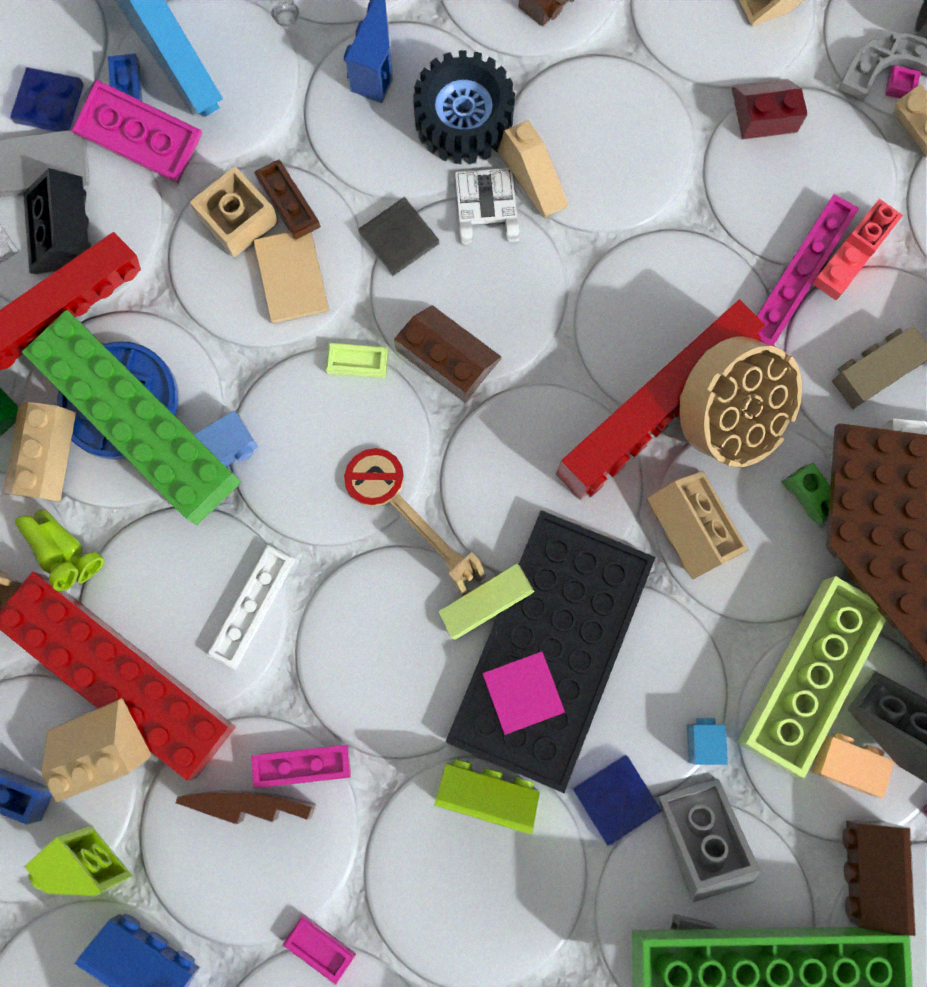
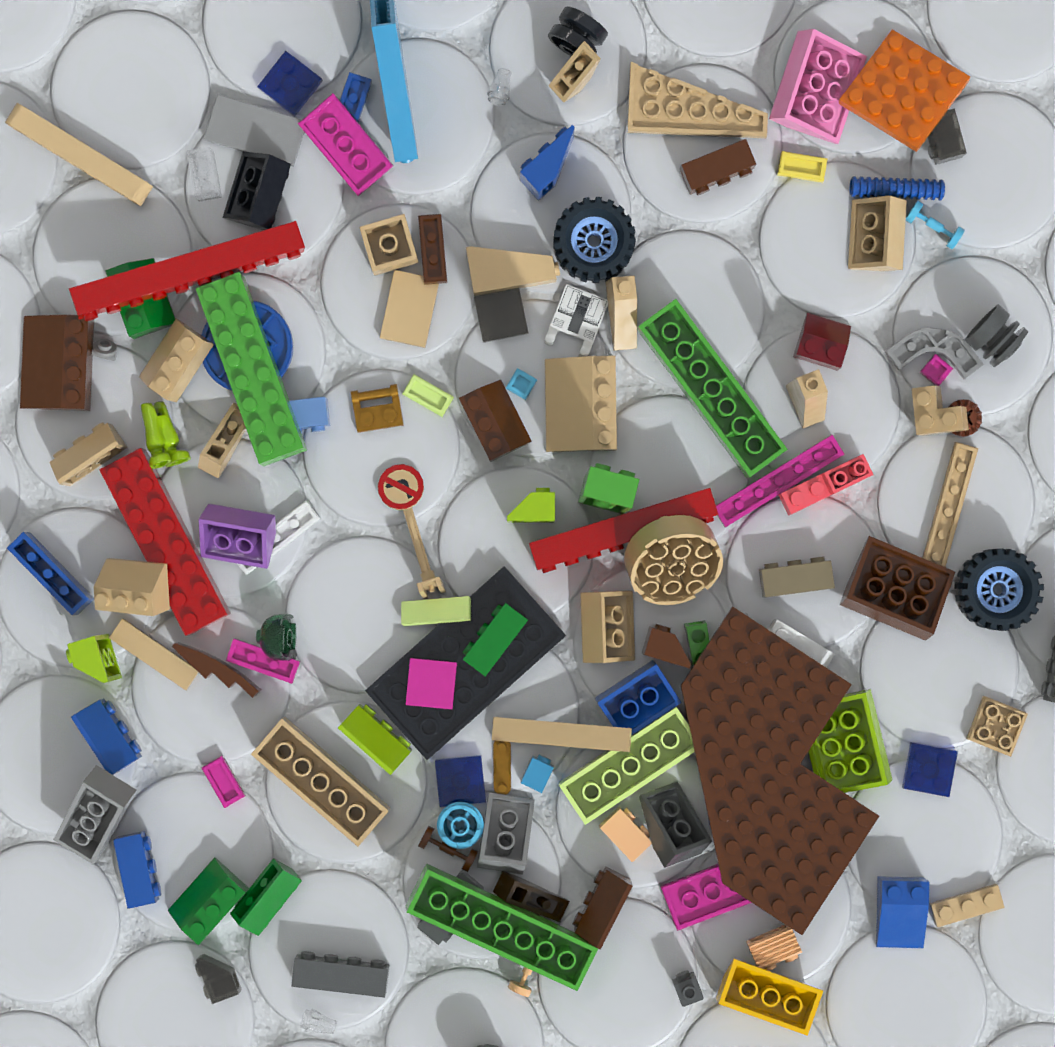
camera: 25 degrees right, 10 degrees up
(135, 523) = (222, 443): none -> tan slope
(159, 824) = (154, 654): none -> tan tile
(199, 625) = (237, 535): none -> medium lavender slope
(305, 726) = (277, 637): none -> clear green cylinder
(311, 408) = (377, 416): none -> pearl gold plate
(381, 181) = (504, 270): none -> tan slope
(445, 888) = (321, 781): none -> tan brick
(458, 299) = (521, 384): none -> medium azure tile
(538, 288) = (580, 404): none -> tan slope
(549, 420) = (535, 508): none -> lime slope
(574, 599) = (494, 638): none -> green brick
(636, 329) = (608, 489): none -> bright green brick
(647, 857) = (460, 825): none -> medium azure cone
(657, 756) = (502, 767): none -> pearl gold piece
(677, 203) = (711, 388): none -> bright green brick
(678, 896) = (447, 849): none -> reddish brown wheel
(715, 677) = (561, 734): none -> tan tile
(778, 907) = (530, 896): none -> dark brown slope
(781, 512) = (664, 646): none -> reddish brown slope
(781, 592) = (638, 698): none -> blue slope
(792, 153) = (809, 398): none -> tan slope

